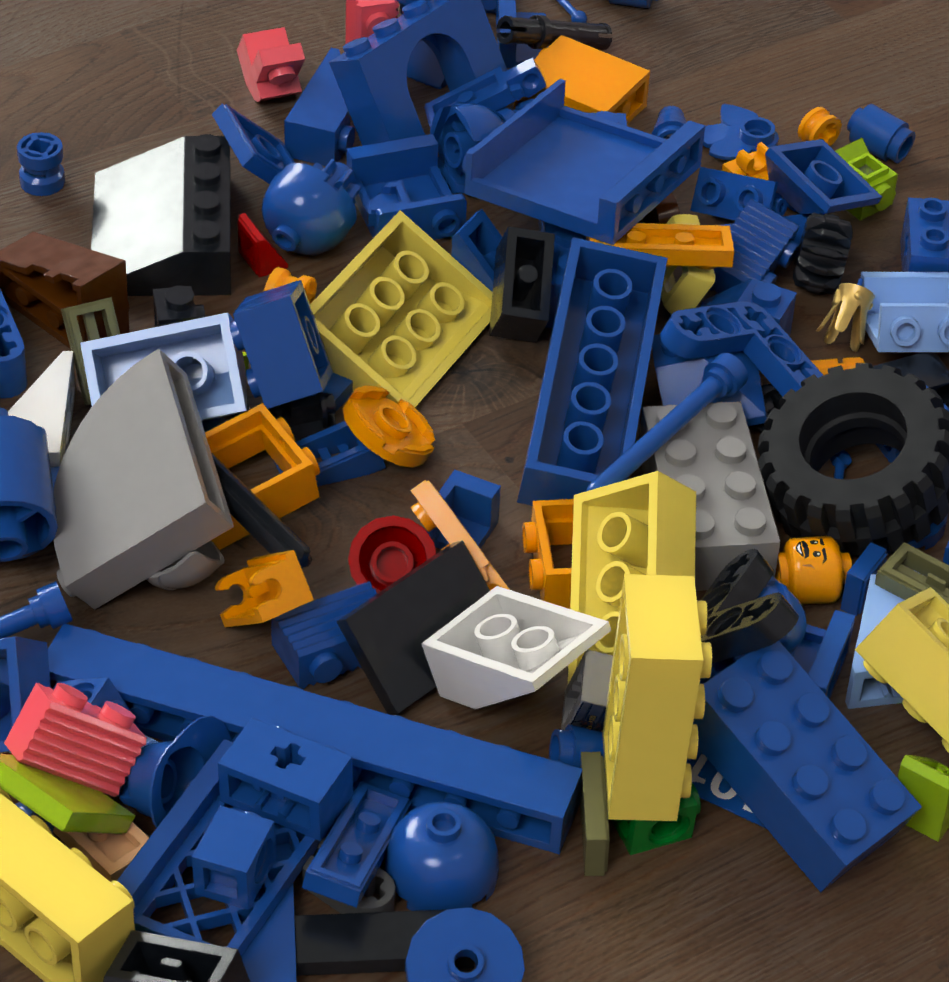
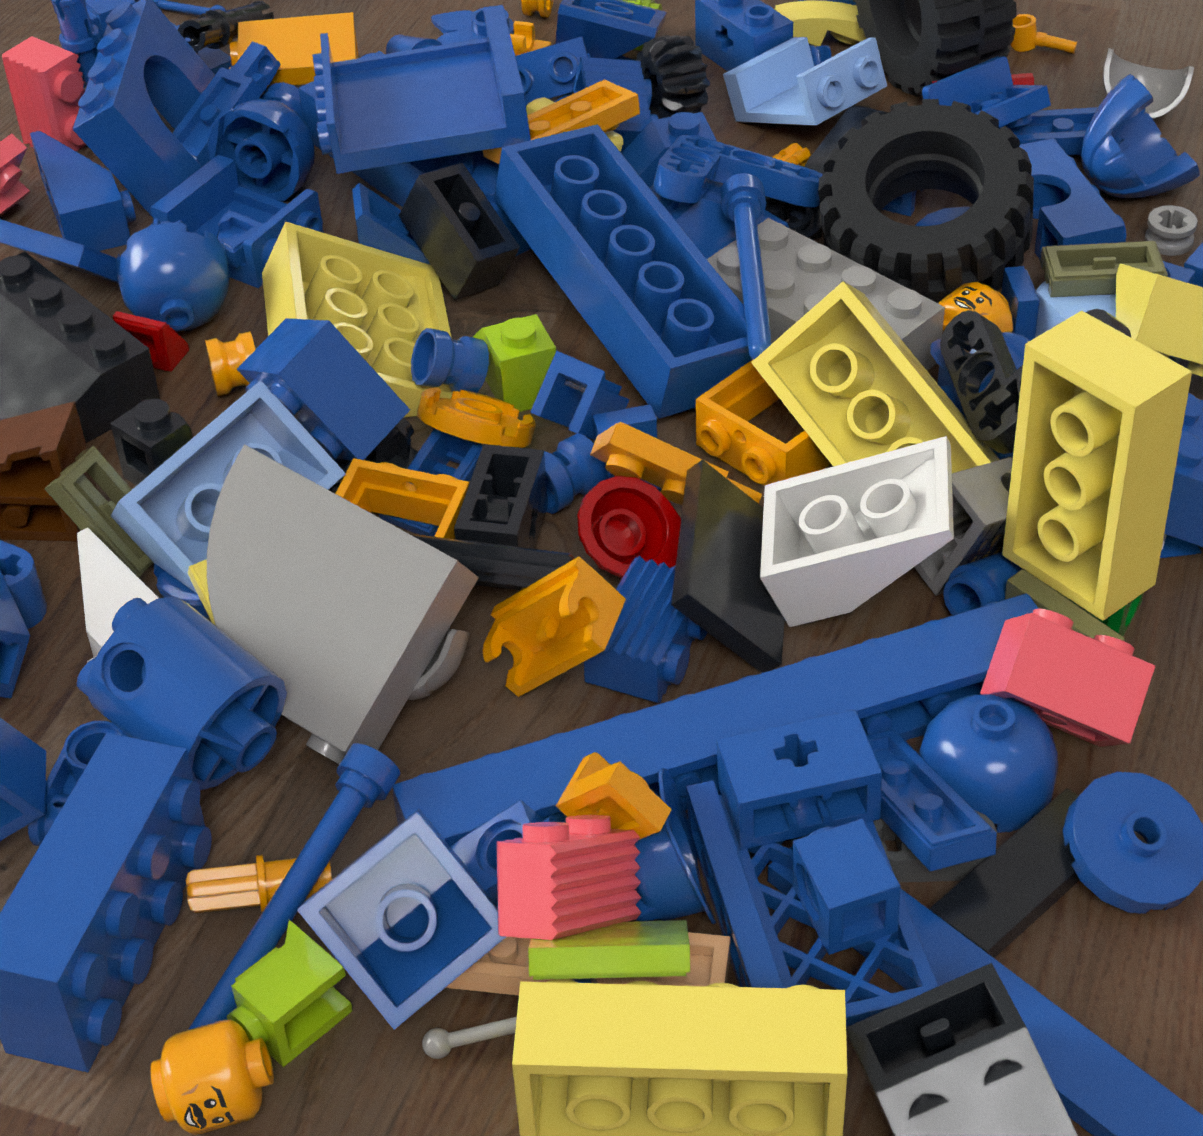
camera: 35 degrees left, 0 degrees up
(159, 710) = (616, 793): none -> light orange bracket
(328, 497) = (504, 500): none -> black brick
(398, 498) = (571, 471): none -> blue wheel
(417, 379) = (447, 361): none -> blue wheel
(464, 450) = (575, 393): none -> blue window
(466, 406) = (517, 359): none -> lime slope
(531, 836) = (1069, 678): none -> coral brick
(848, 302) = (746, 99): pearl gold piece -> none

